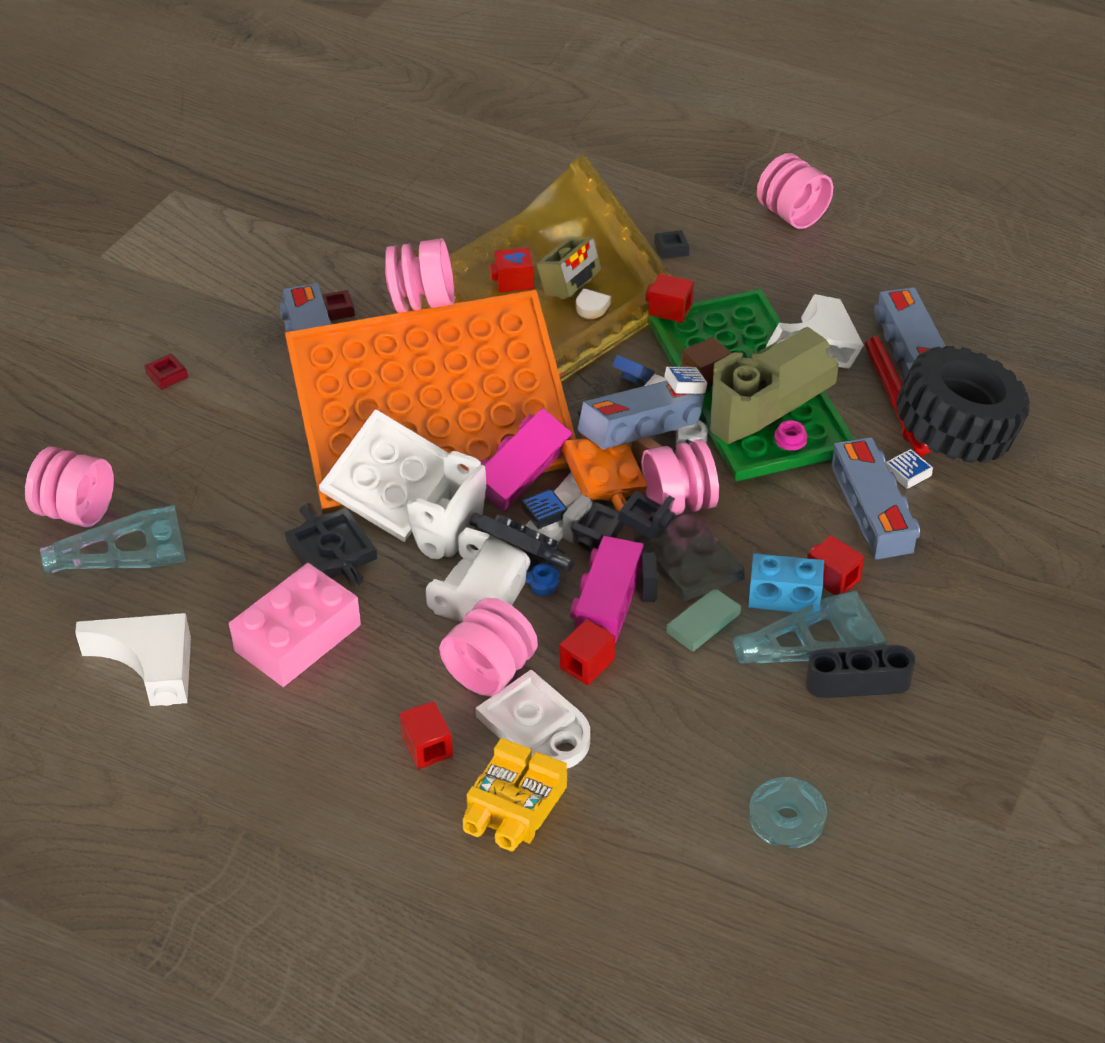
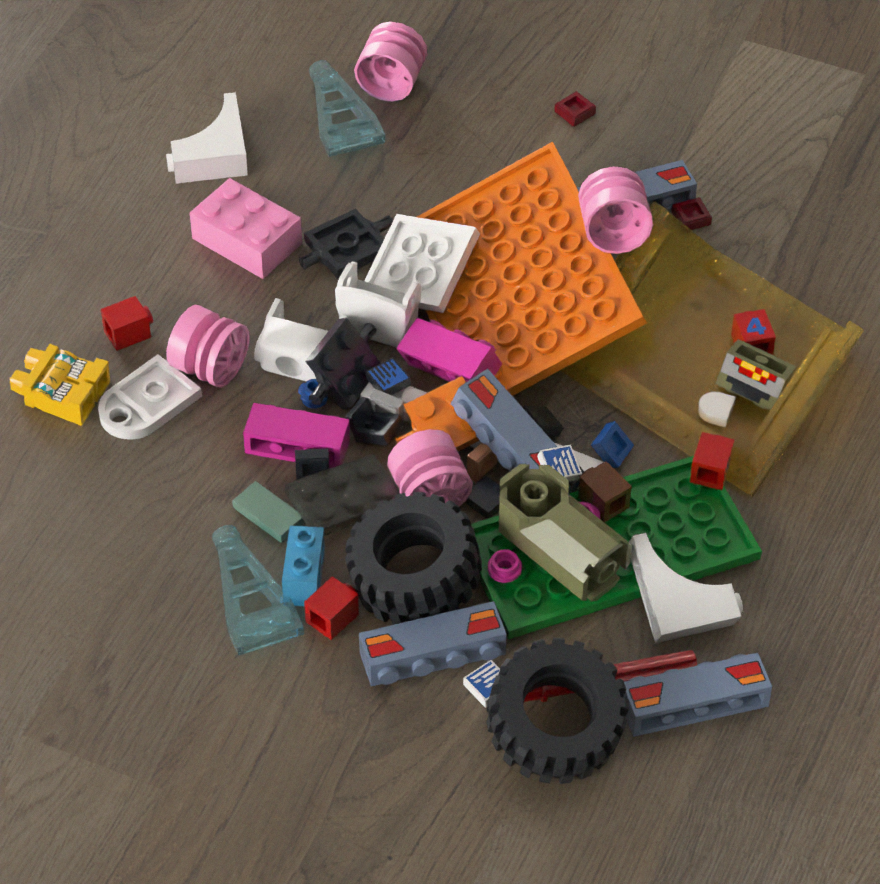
camera: 85 degrees right, 5 degrees up
(587, 651) = (218, 423): red brick -> none
(646, 514) = (375, 448): black bracket -> none
(671, 244) = (846, 479): black tile -> none
(792, 794) = (43, 555): clear light blue tile -> none
(794, 457) = (405, 524): none -> black tyre
(860, 671) = (195, 623): black beam -> none

